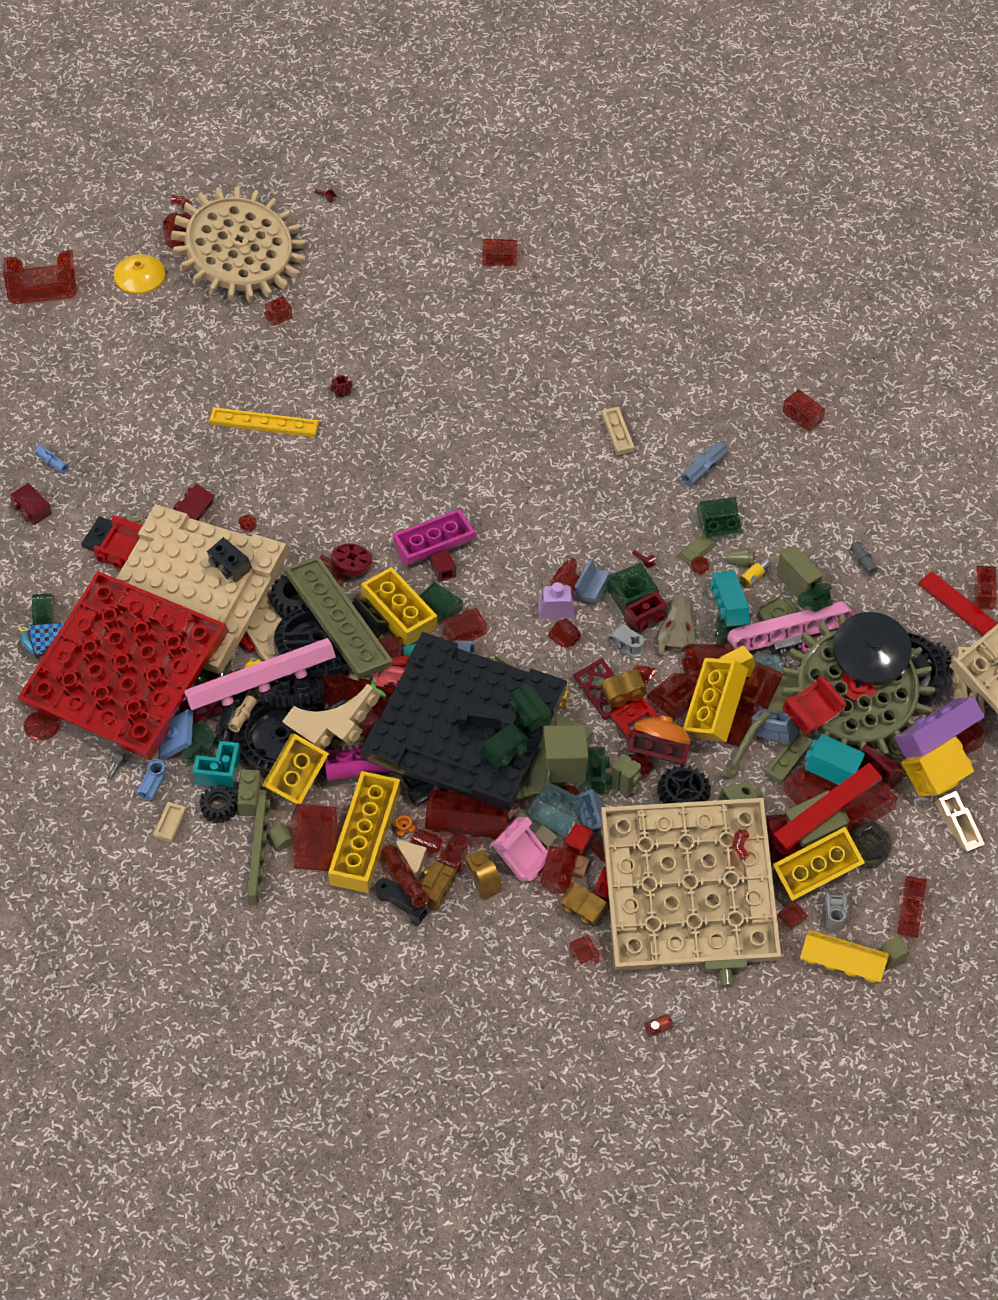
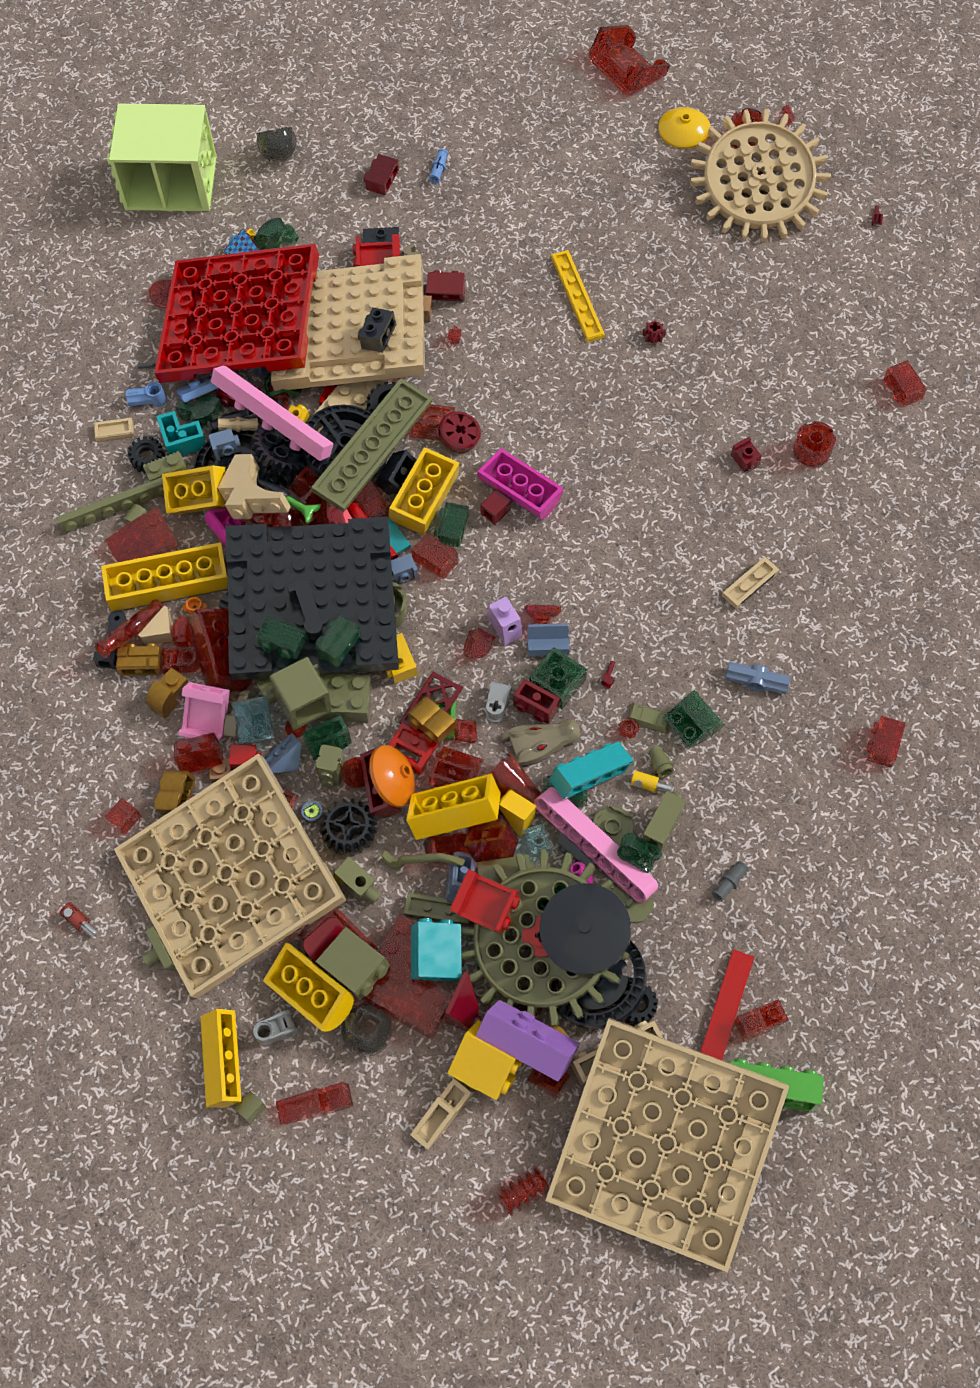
camera: 65 degrees right, 10 degrees up
(259, 730) = (224, 443): none -> sand blue brick
(278, 311) = (708, 244): clear red brick -> none
(500, 380) = (746, 455): none -> dark red brick
(520, 332) = (814, 444): none -> clear red brick
(738, 843) = (278, 897): clear red arm -> none
(792, 915) = (251, 989): clear red plate -> none
(827, 806) = (364, 965): red tile -> none

